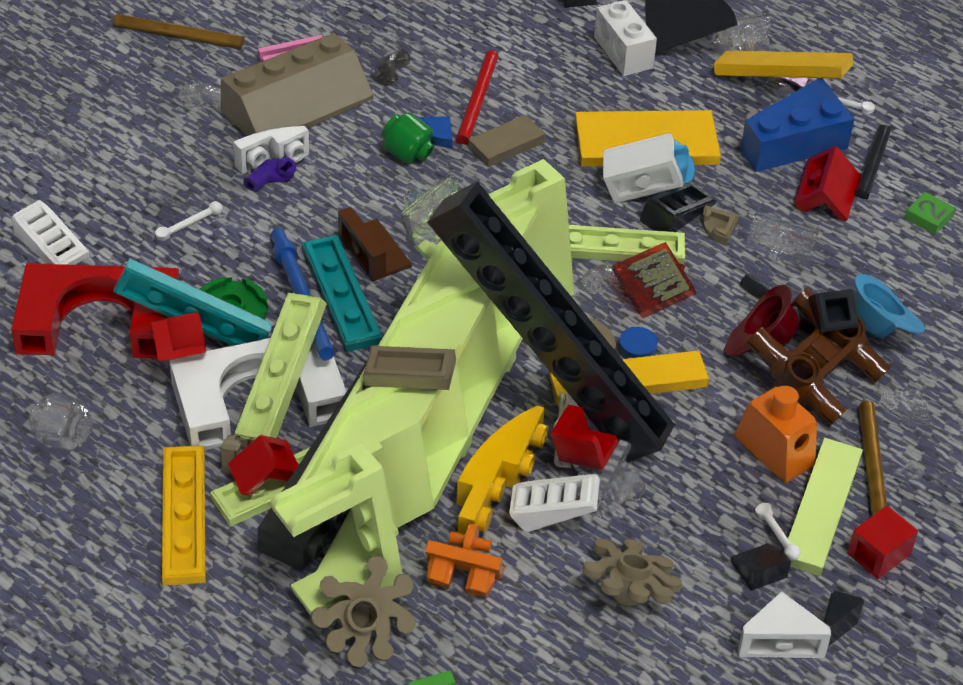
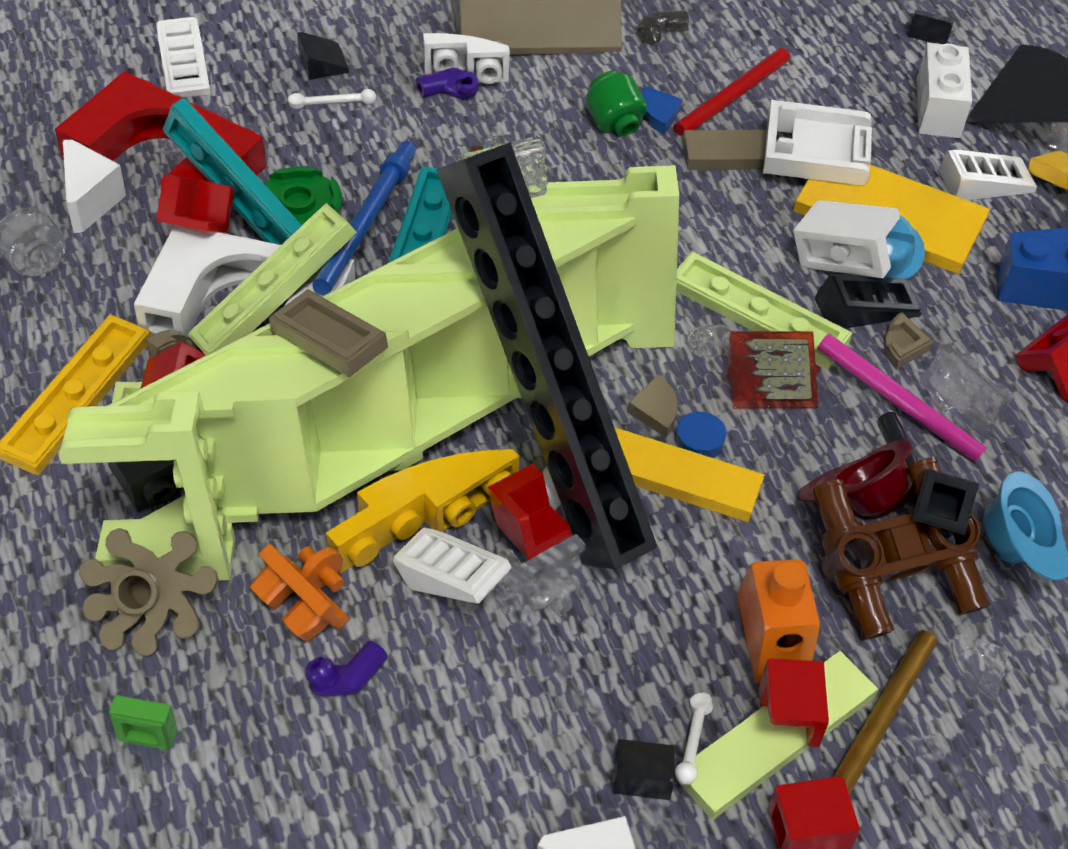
camera: 30 degrees right, 5 degrees up
(62, 359) = (90, 183): none -> white slope
(154, 193) = (320, 56): none -> black slope
(533, 606) = (348, 678): none -> dark purple arm
(573, 109) = (824, 143): none -> white container
(632, 574) = (475, 698): dark tan animal -> none
(683, 90) = (965, 177): none -> white slope
(746, 262) = (902, 398): none -> dark pink bar
(828, 470) = (796, 696): none -> red panel

